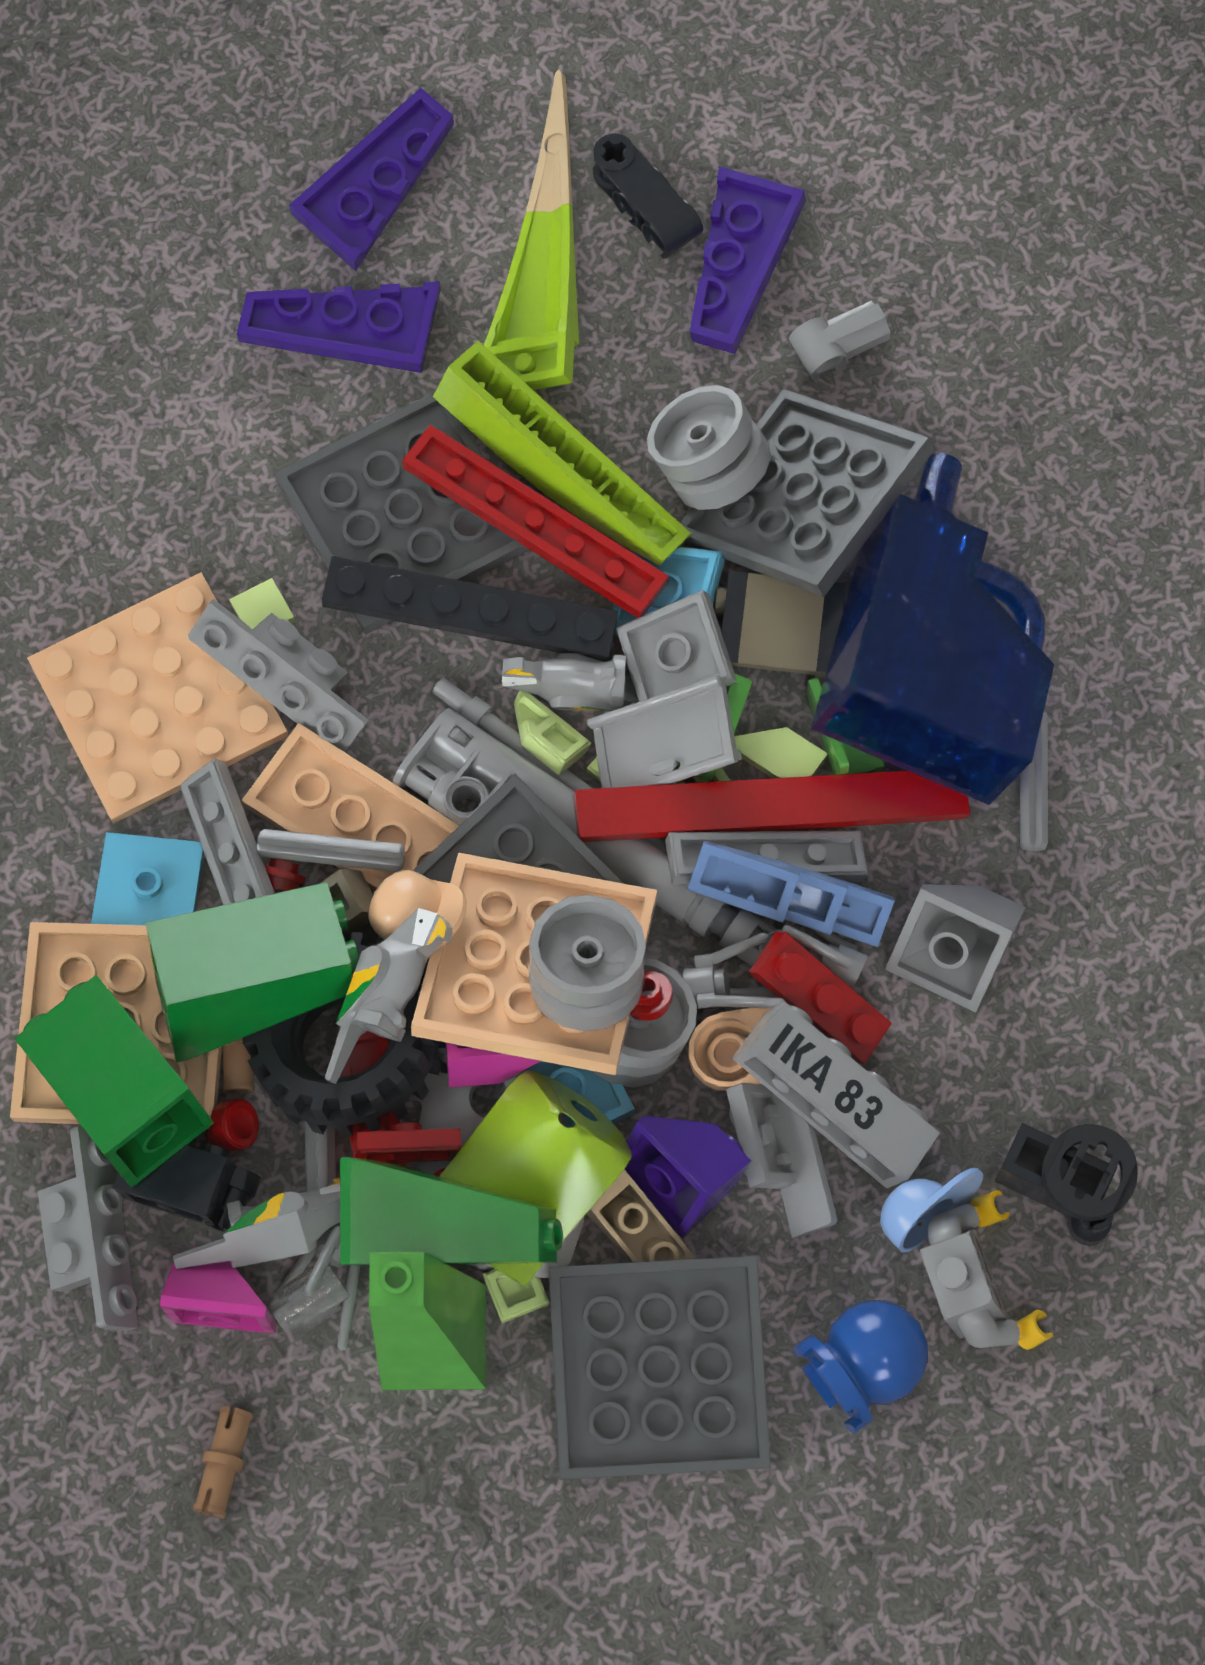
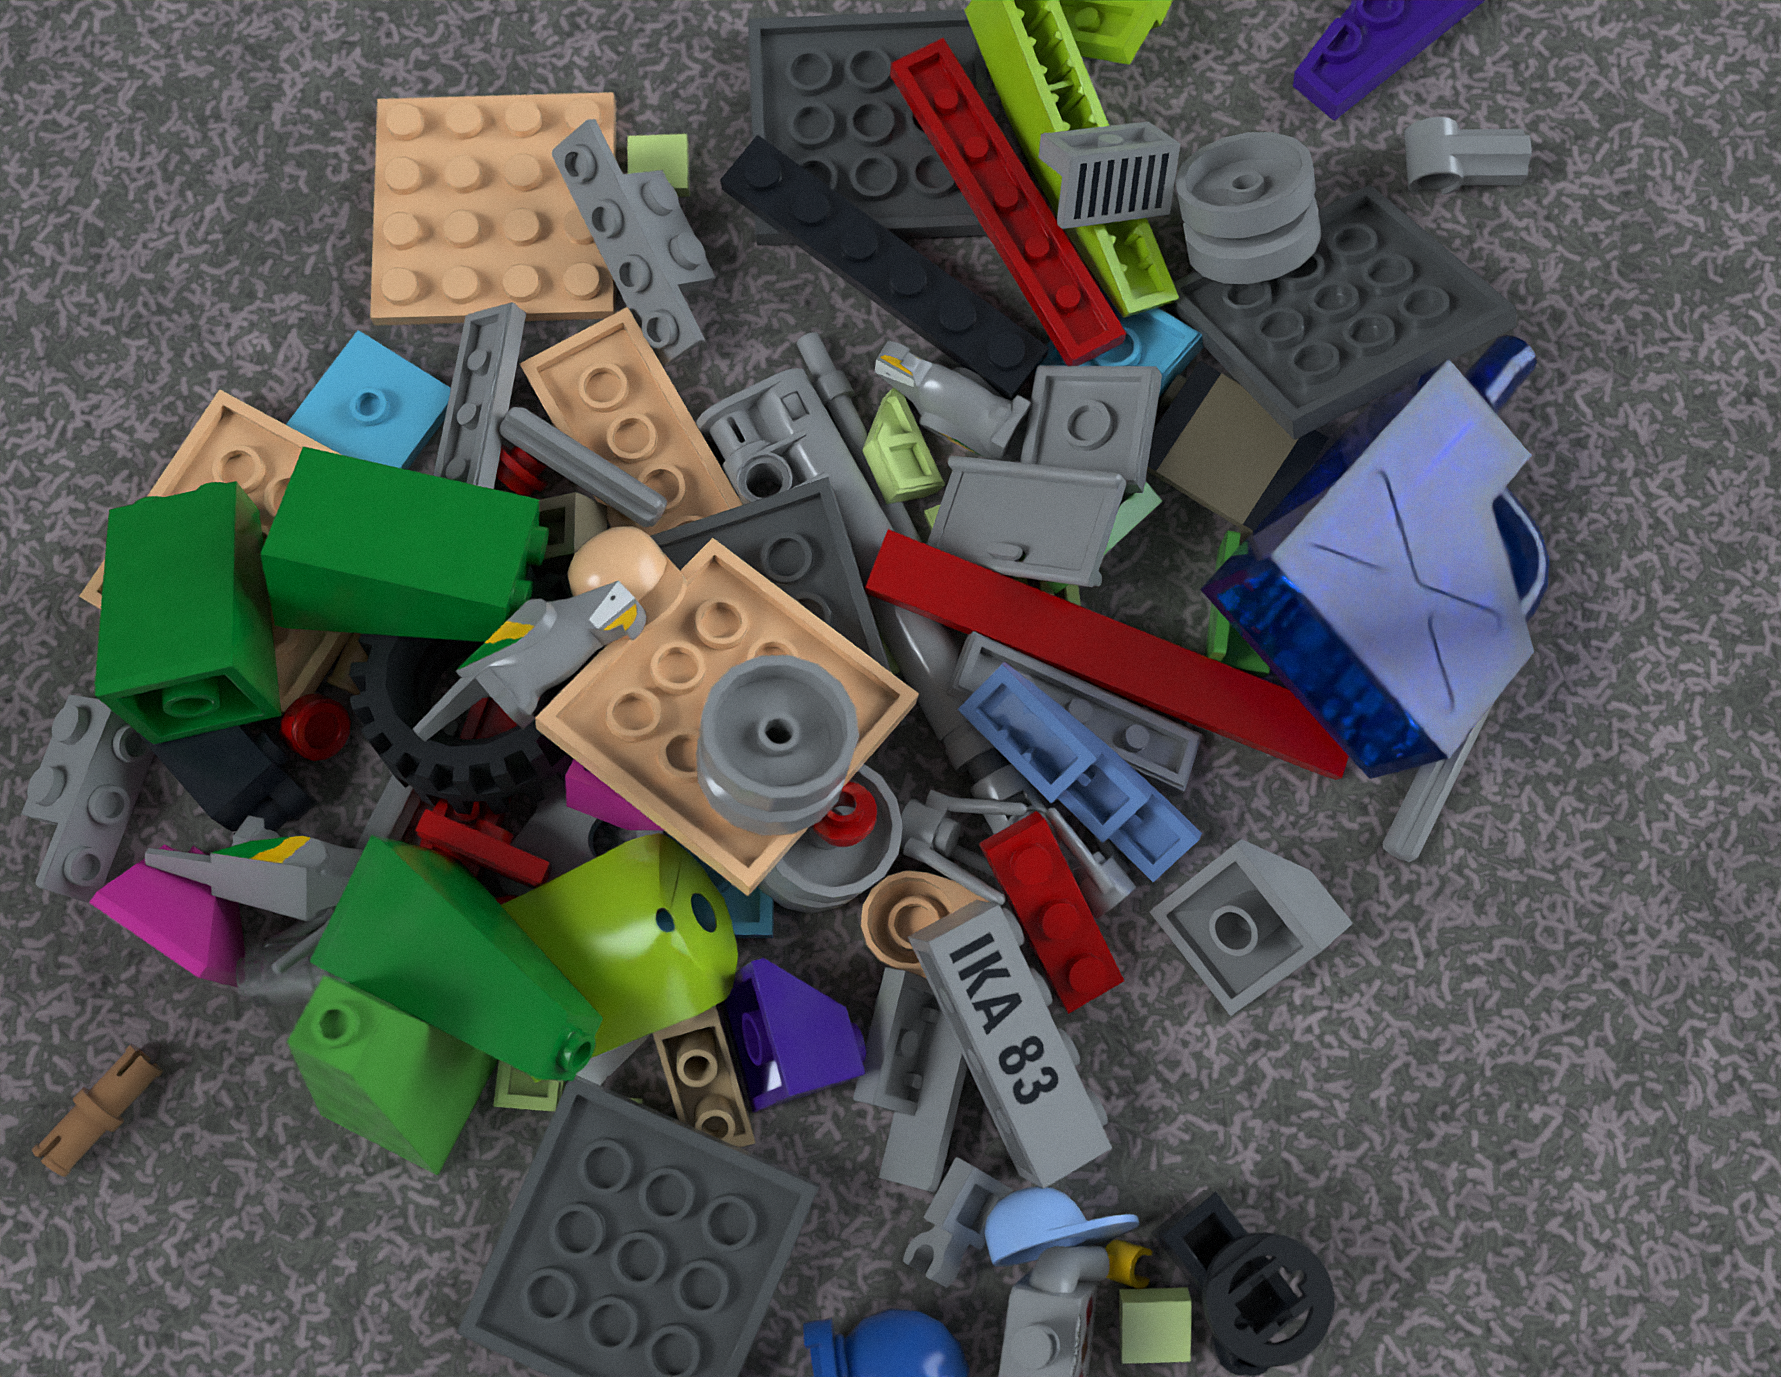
camera: 25 degrees right, 5 degrees up
(602, 467) = (1112, 172): none -> light grey panel
(780, 753) = (1154, 599): yellowish green tile -> none
(862, 1234) = (959, 1220): none -> light grey plate
(1027, 1238) = (1155, 1325): none -> yellowish green tile

